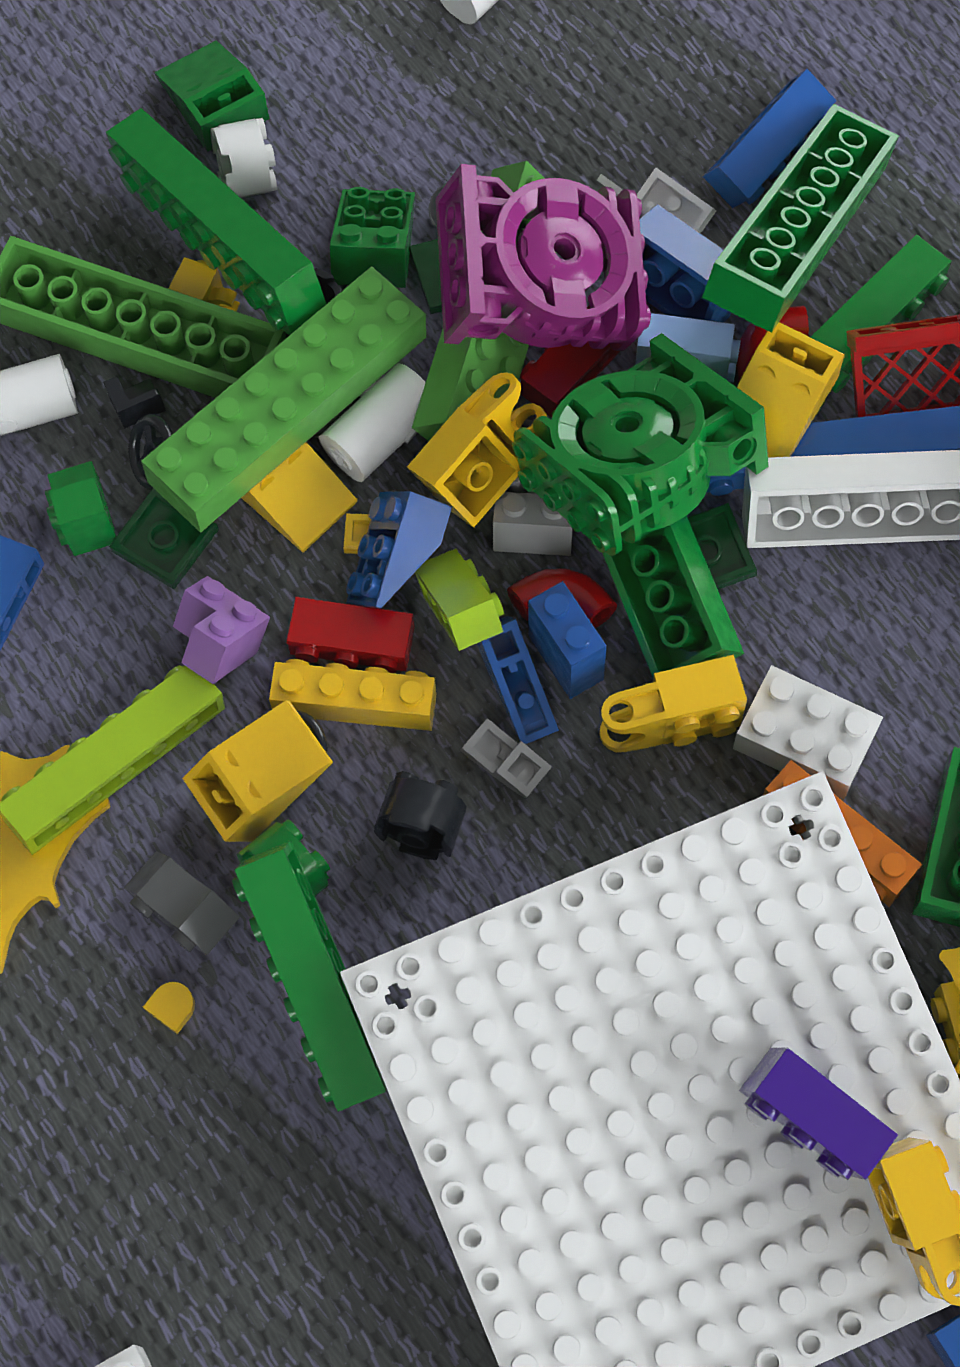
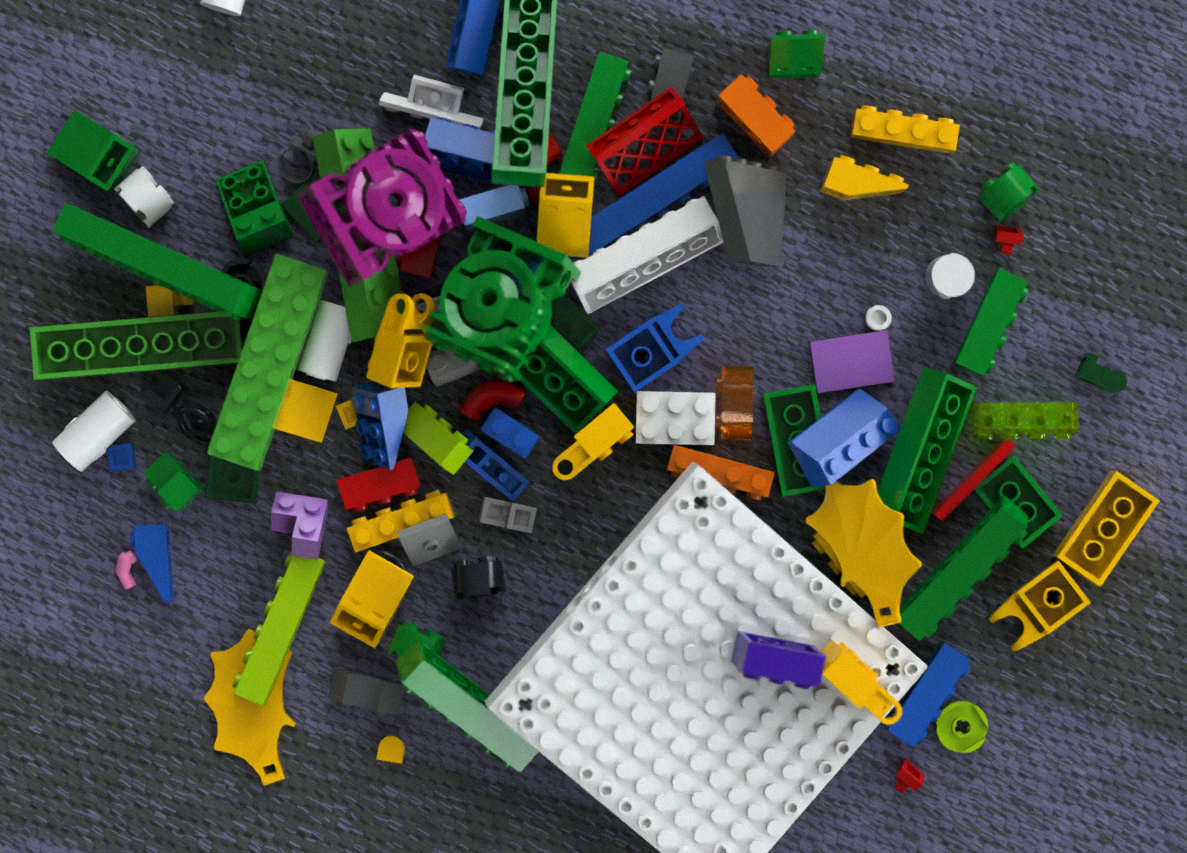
camera: 25 degrees left, 20 degrees up
(33, 454) = (121, 457): none -> blue tile
(379, 733) = (429, 540): none -> light grey plate
(827, 622) = (660, 349): none -> blue brick
(904, 752) = (736, 402): none -> clear orange brick

